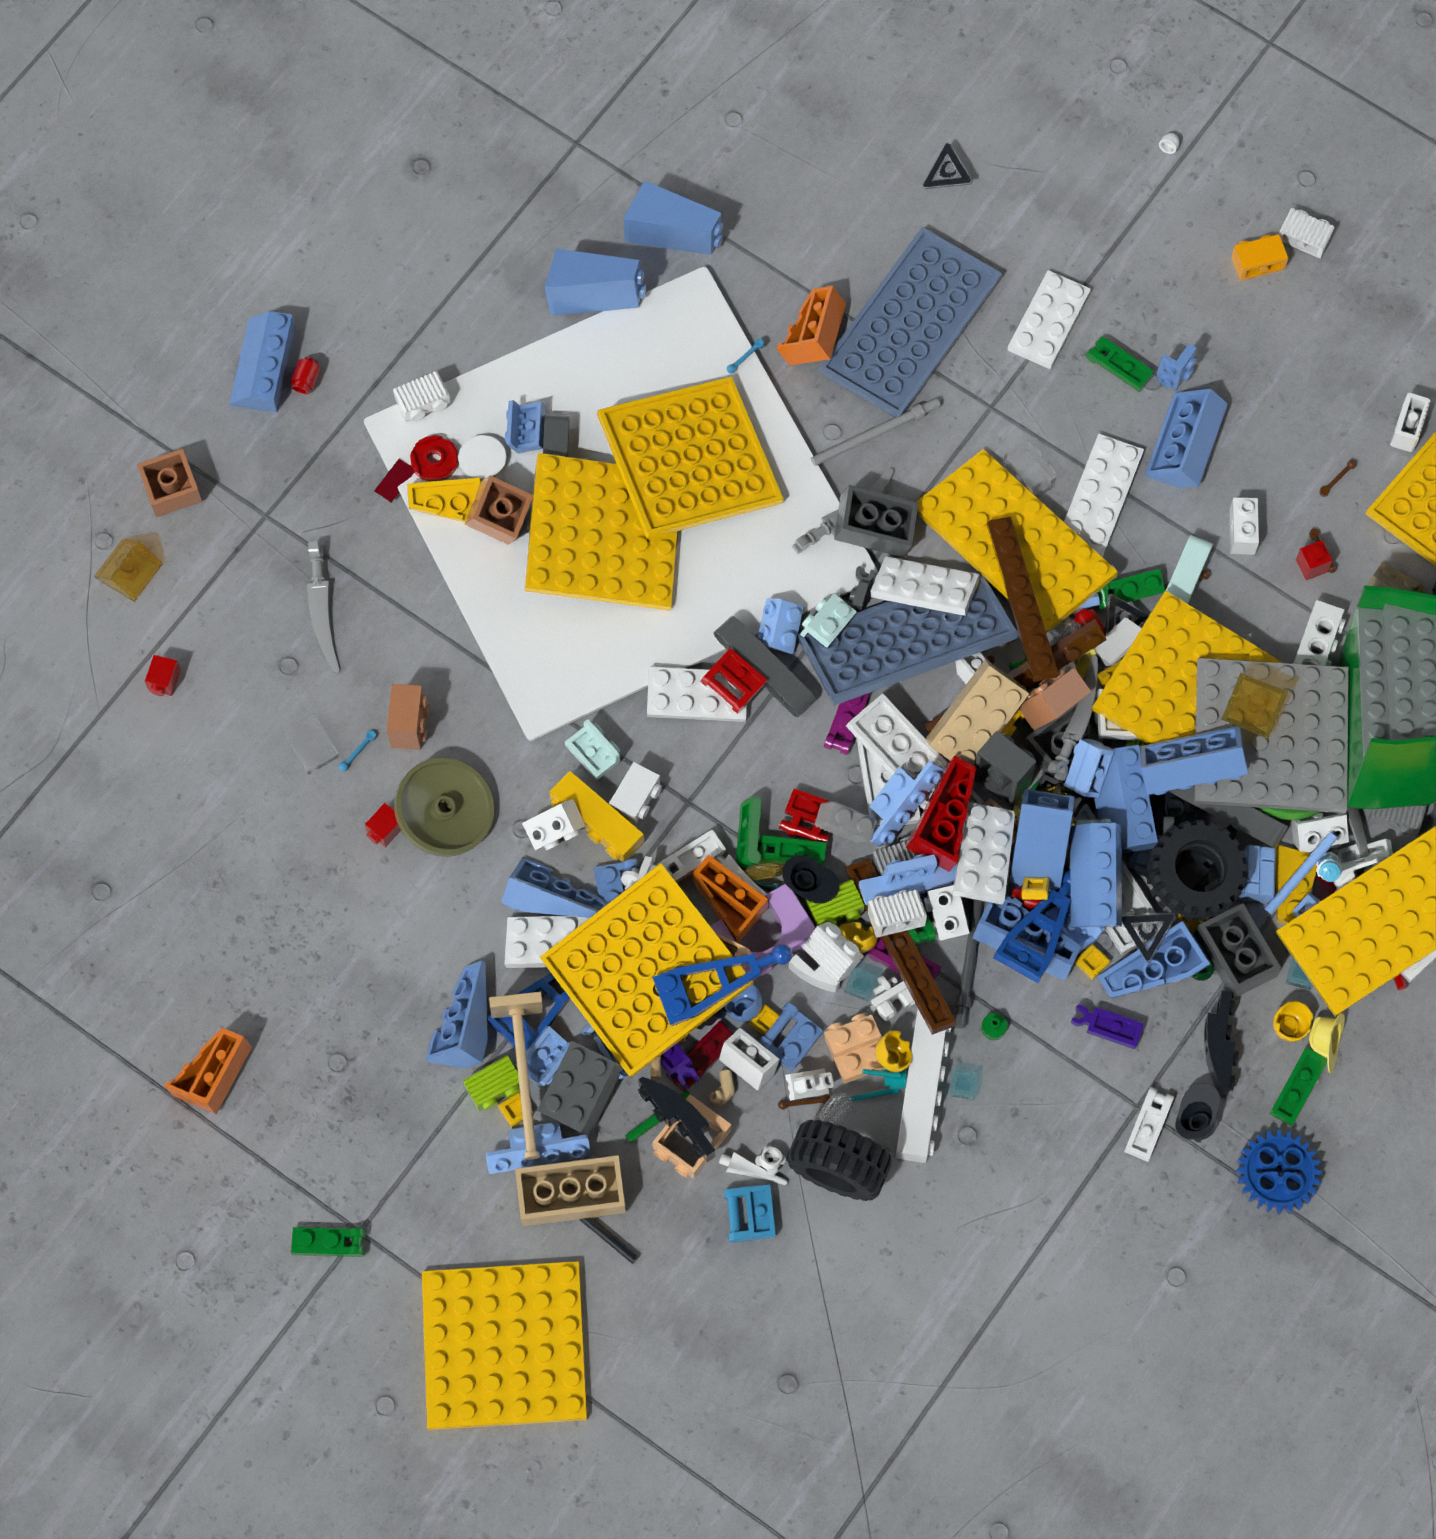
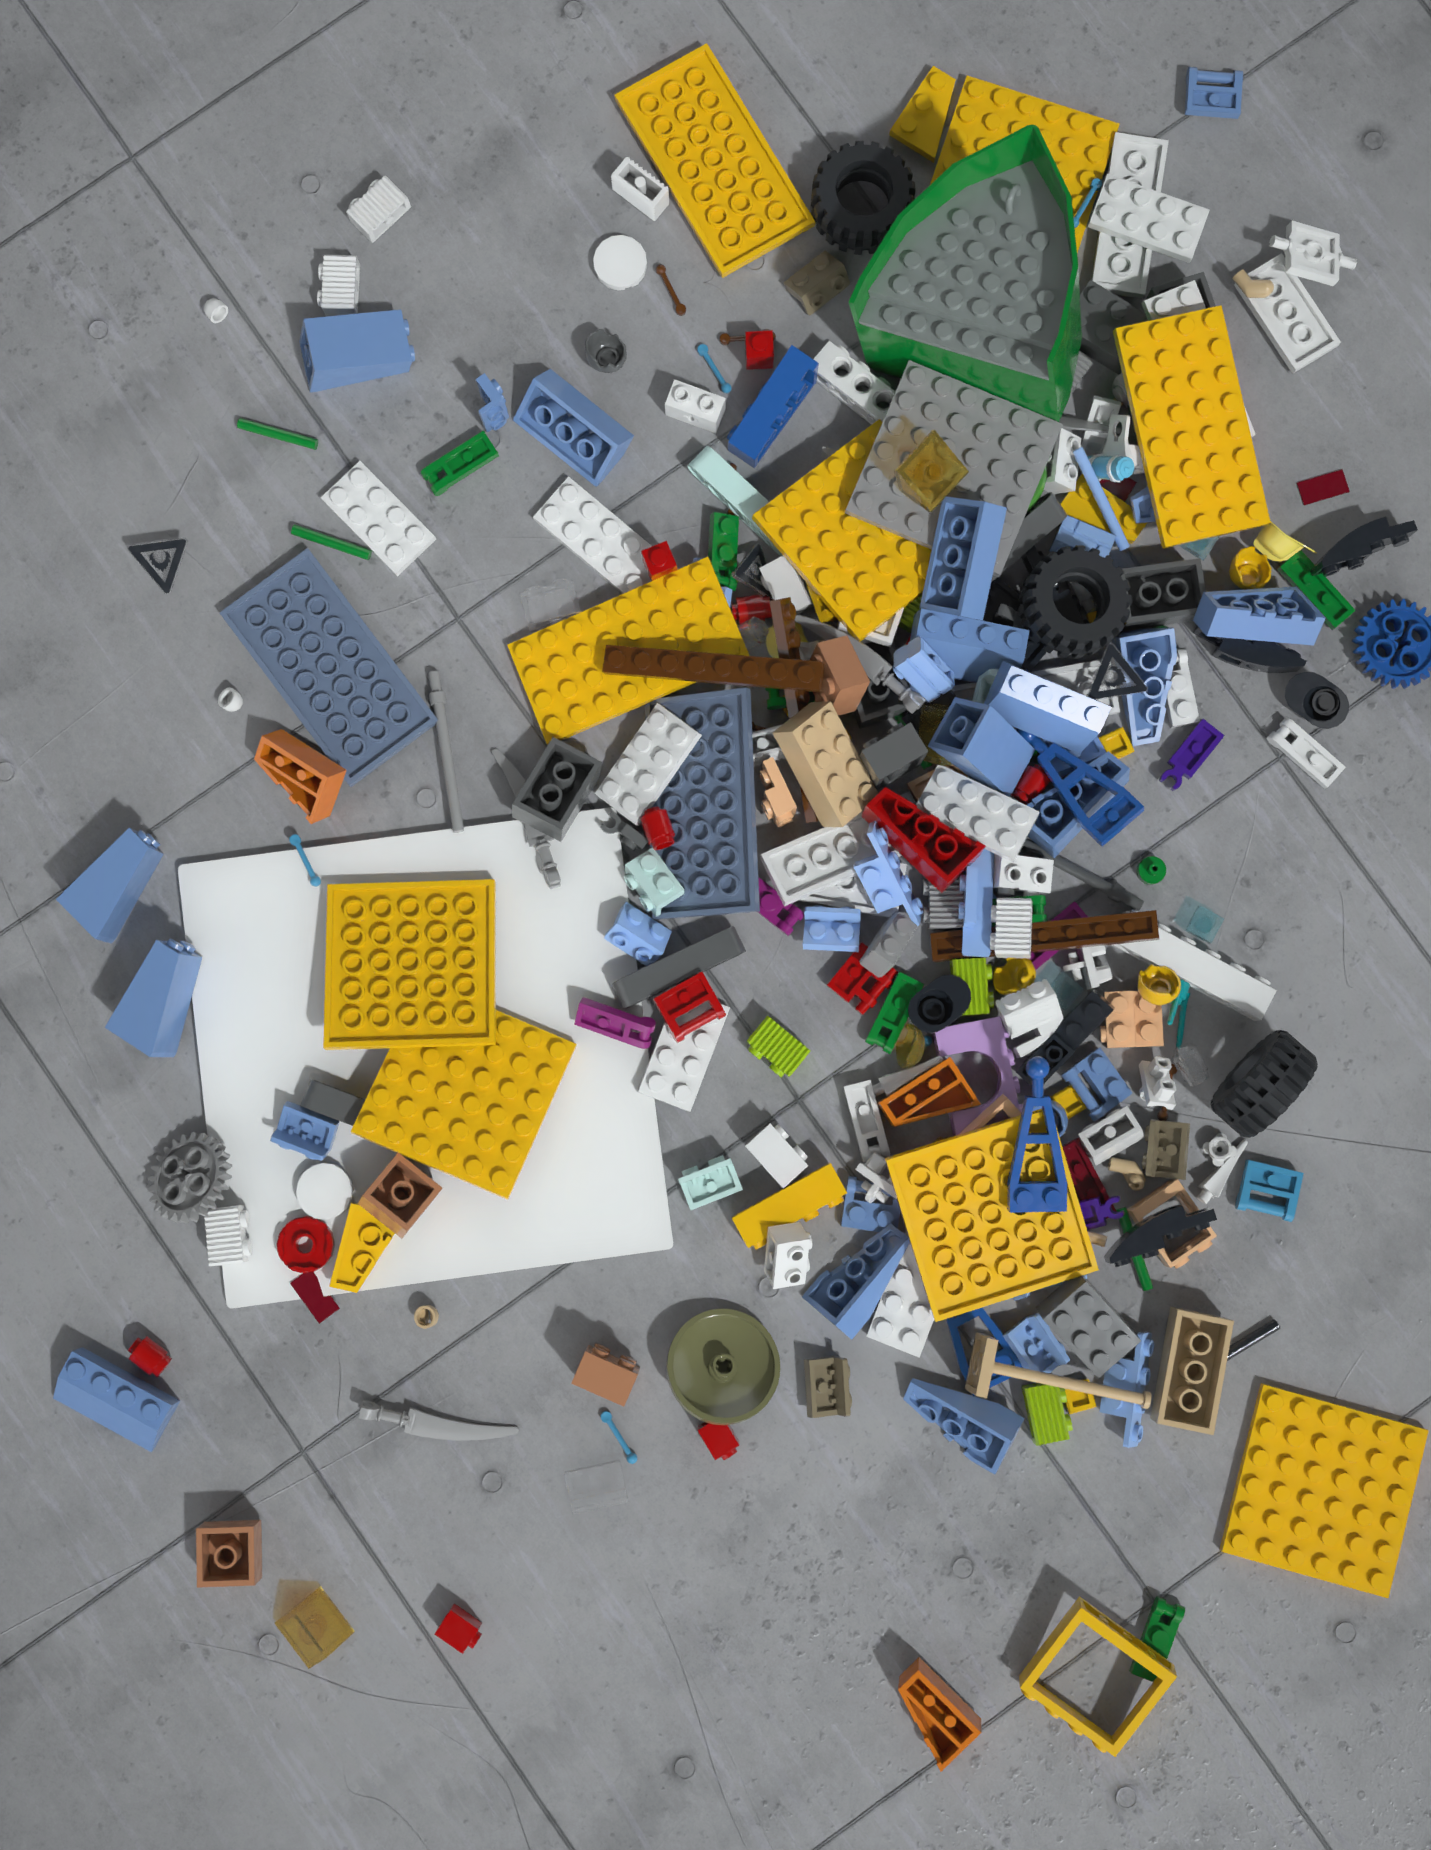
camera: 70 degrees left, 15 degrees up
(318, 1207) = (1084, 1612): none -> yellow window
(407, 569) = (422, 1316): none -> tan hinge
(454, 897) = (827, 1387): none -> dark tan bracket
(458, 354) = (189, 1178): none -> light grey gear
(698, 629) = (615, 1023): none -> magenta plate
(726, 767) = (777, 1047): none -> lime brick
(749, 833) = (861, 1049): green plate -> none
(754, 1111) = (1166, 1149): none -> dark tan bracket
(817, 997) = (1070, 1033): none -> black slope
(842, 776) = (832, 928): none -> light blue bracket
(854, 259) = (230, 700): none -> white hinge
(873, 608) = (658, 828): none -> red brick
(936, 694) = (777, 798): none -> light nougat plate
(1014, 291) = (331, 542): none -> green bar
(1035, 888) = (1031, 774): yellow tile -> none
(1087, 222) = (277, 433): none -> green bar
(1098, 535) = (658, 560): none -> red brick
(1161, 1000) = (1181, 699): none -> white plate
(1181, 253) = (354, 348): none -> medium blue slope
(1229, 225) = (339, 285): none -> white brick
(1250, 1031) = (1260, 615): none -> medium blue wedge
(1259, 257) = (388, 268): light orange brick -> none
(1260, 441) = (605, 351): none -> dark grey hair
(1269, 586) = (773, 406): none -> blue wedge
(1297, 519) = (703, 351): none -> dark azure hinge
(1343, 430) = (620, 262): none -> white tile
(1345, 1099) = (1361, 543): none -> black slope
(1395, 1067) = (1323, 487): none -> dark red sticker

